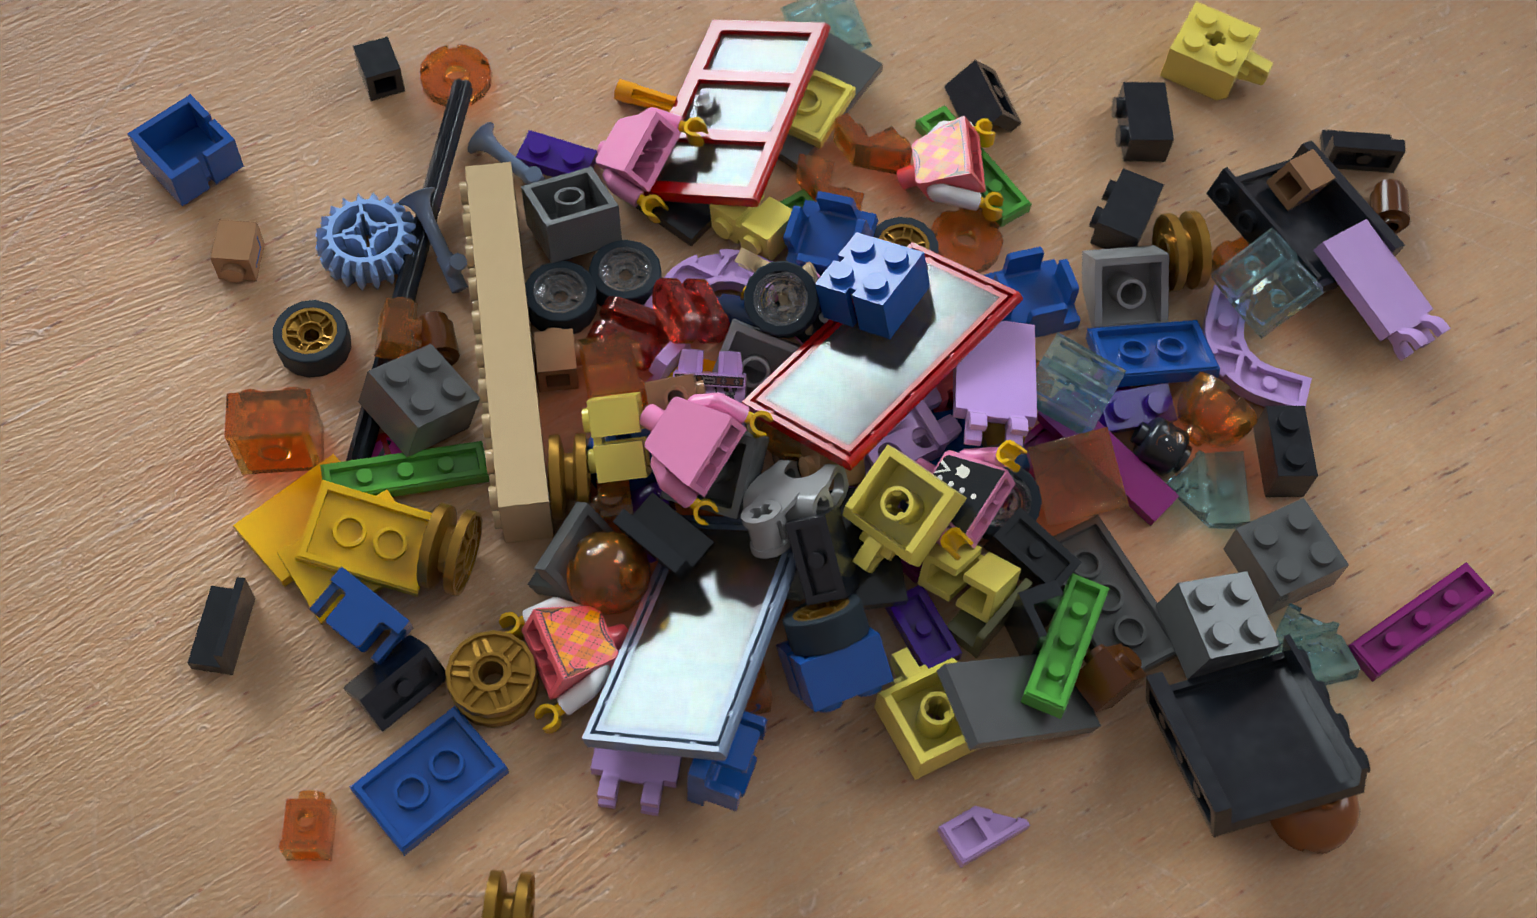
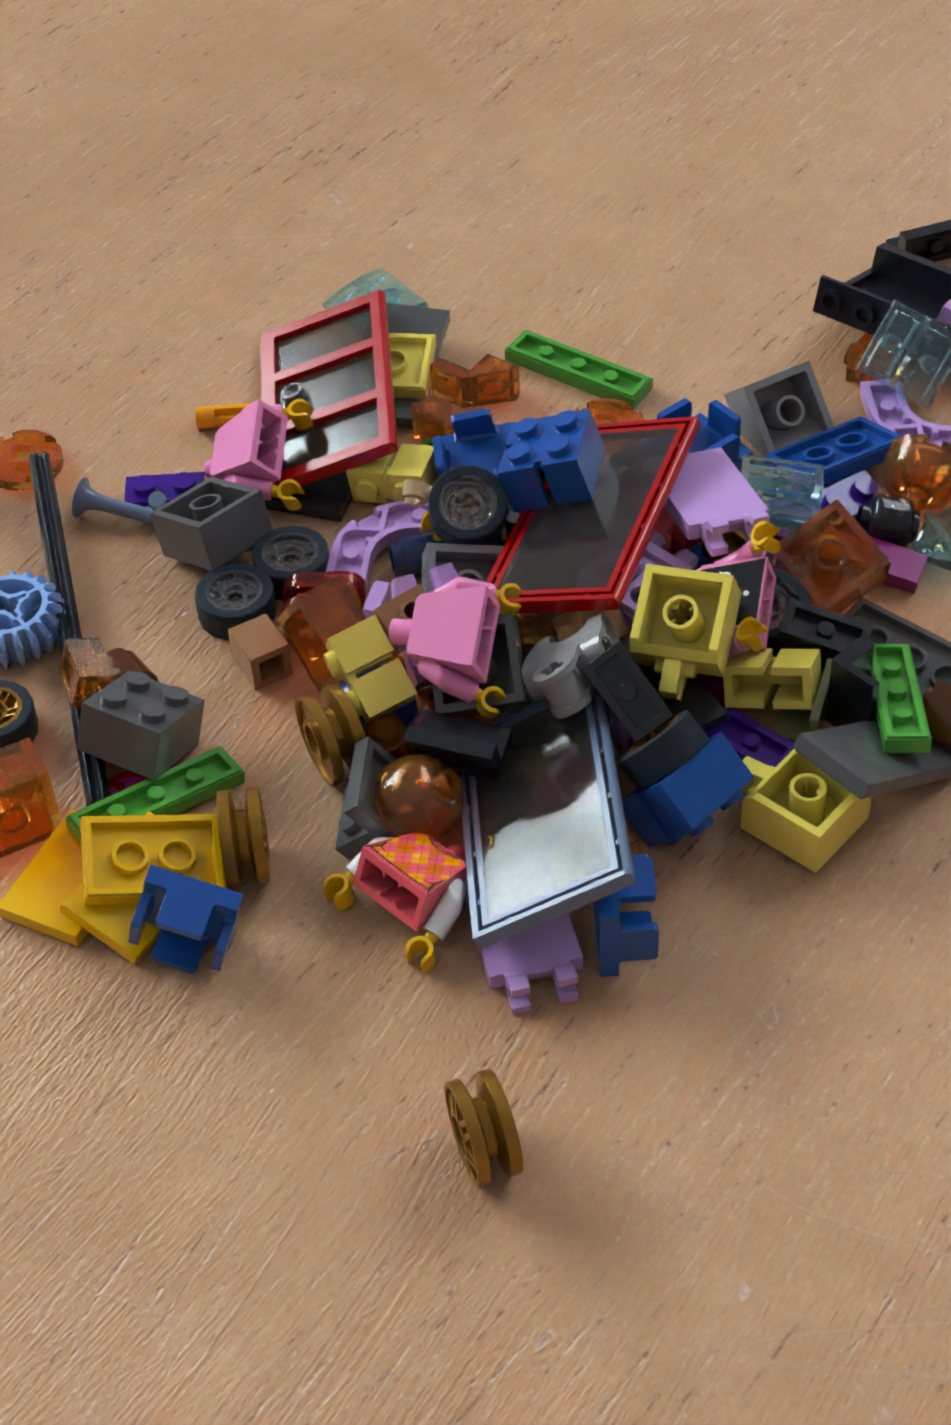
camera: 15 degrees left, 15 degrees down
(222, 628) = (32, 1002): black panel -> none
(313, 841) = (224, 1139): clear orange brick -> none
(398, 683) = (248, 978): black panel -> none
(429, 780) = (325, 1055): blue tile -> none
(450, 264) = (110, 612): sand blue piece -> none
(490, 654) = (346, 938): pearl gold wheel -> none
(505, 355) = (214, 658): tan brick -> none
(689, 311) = (376, 555): clear red brick -> none
(951, 166) = (564, 369): torso -> none
(978, 833) = (902, 894): lavender tile -> none
(980, 95) = (556, 314): black panel -> none
(1126, 212) = (745, 351): black piece -> none
(1143, 122) = (720, 282): black piece -> none
(1188, 248) = (826, 350): pearl gold wheel -> none
(1214, 53) = (755, 209): light yellow hinge -> none
(1300, 179) = (892, 272): medium nougat brick -> none

